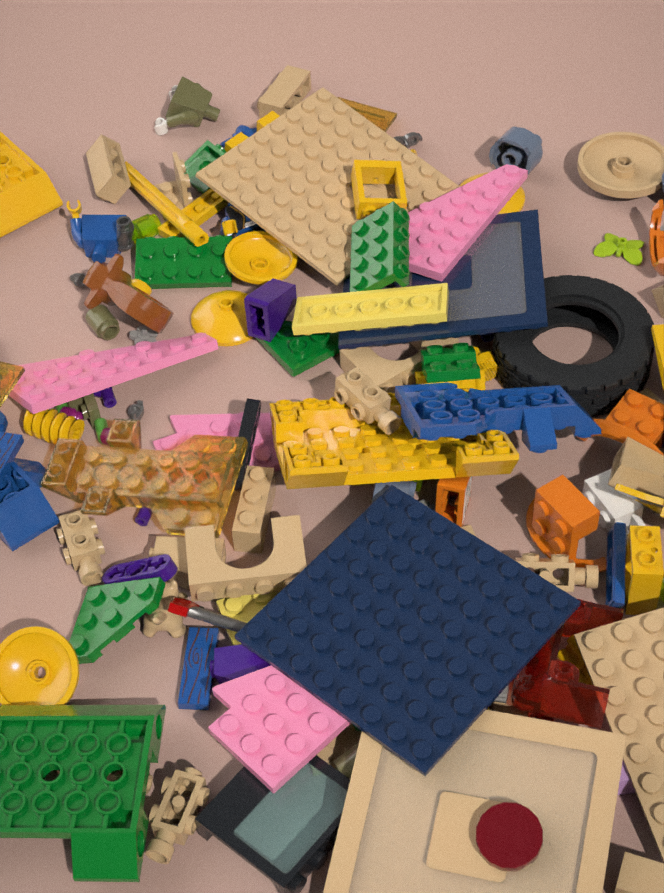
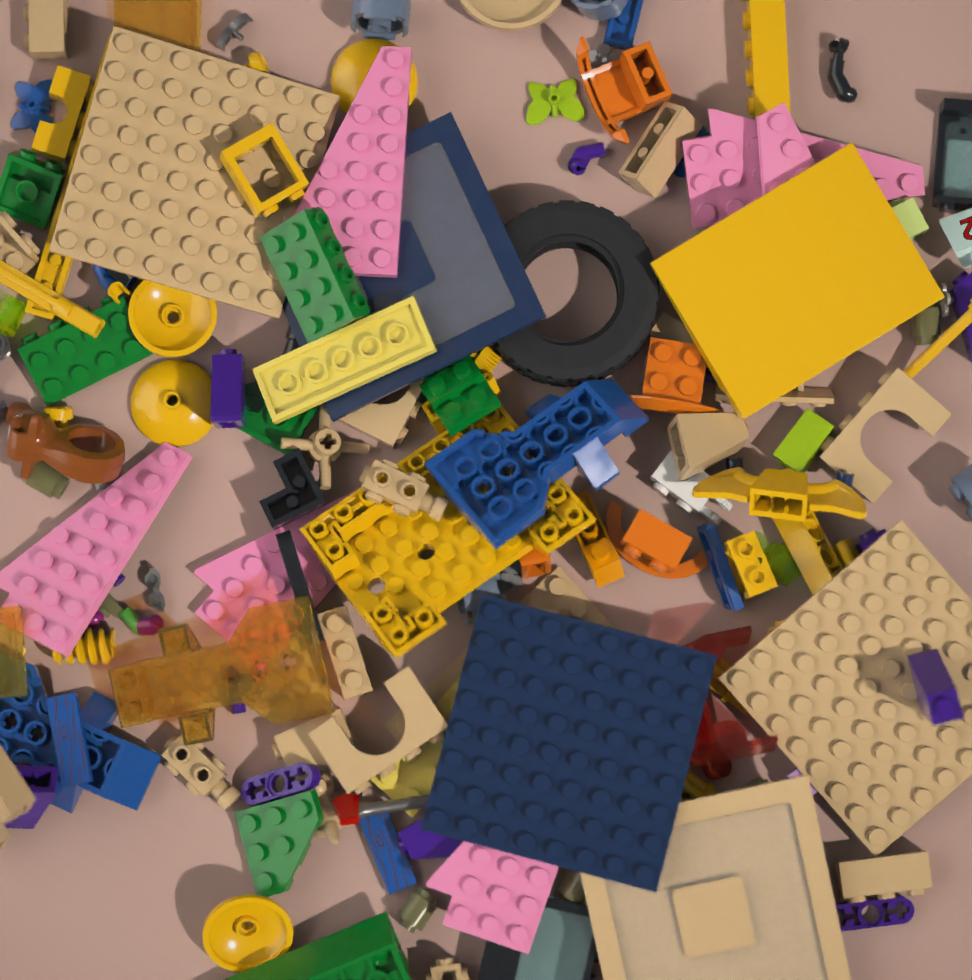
camera: 30 degrees left, 35 degrees up
(193, 725) = (417, 910): none -> olive brick
(286, 384) = (300, 492): none -> black brick
(322, 372) = (318, 452): none -> tan bar
(509, 836) = (746, 908): dark red tile -> none
(510, 515) = (598, 548): none -> light orange slope
(572, 575) = (662, 600): tan brick -> none
(629, 281) = (583, 155): none -> dark purple arm

